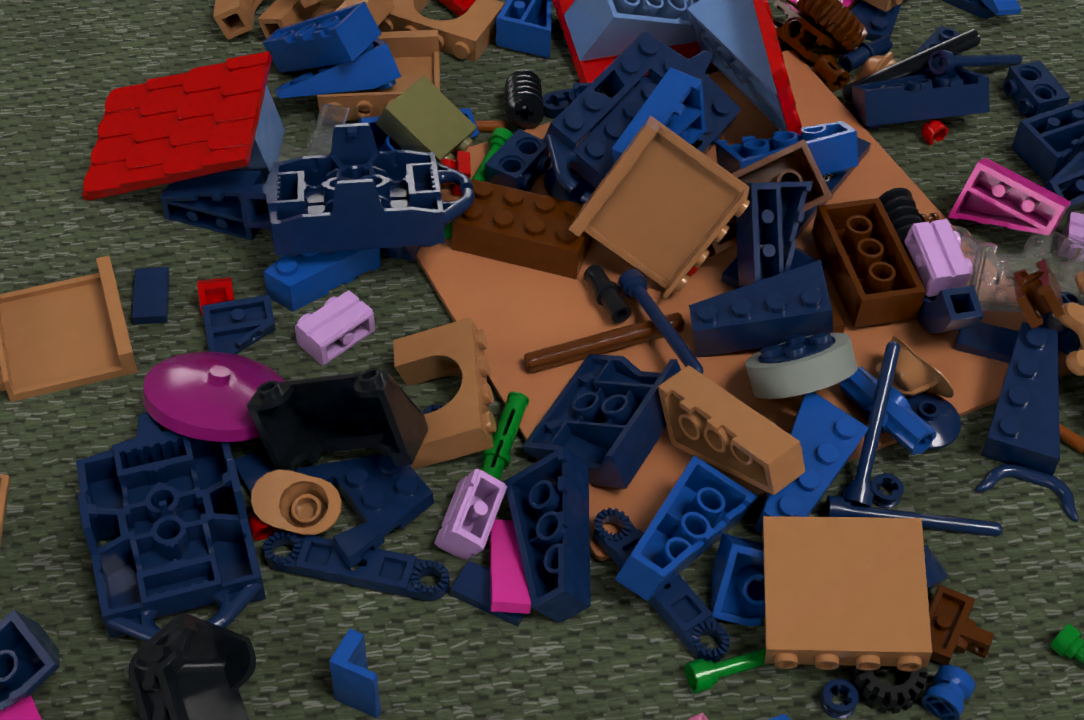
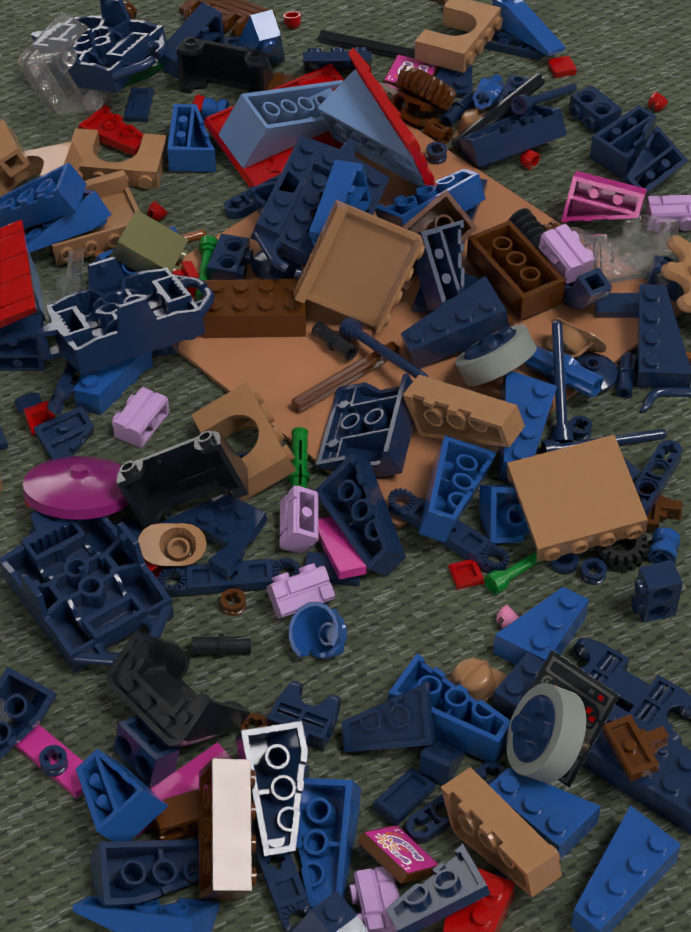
camera: 15 degrees left, 0 degrees up
(212, 271) = (27, 401): none -> dark blue tile
(249, 269) = (63, 390): none -> dark blue plate
(299, 655) = (221, 645): none -> black pin
(346, 589) = (229, 594): none -> reddish brown bush
(351, 678) = (266, 648): blue panel -> none
(432, 676) = (317, 631): none -> blue helmet
(434, 613) = (293, 592): none -> lavender brick
(460, 87) = (156, 211): none -> red hinge
(524, 99) = (212, 209): black piece -> none
(664, 651) = (466, 574): none -> red tile
(804, 677) = (565, 564): none -> dark blue tile
(819, 97) = (436, 153): none -> dark blue bush
(906, 39) = (488, 91): none -> blue piece
(966, 598) = (656, 482): none -> dark blue beam
(971, 437) = (626, 375): none -> dark blue axle
(1011, 32) = (562, 66): none -> red tile
(1038, 294) = (645, 261): reddish brown piece -> none

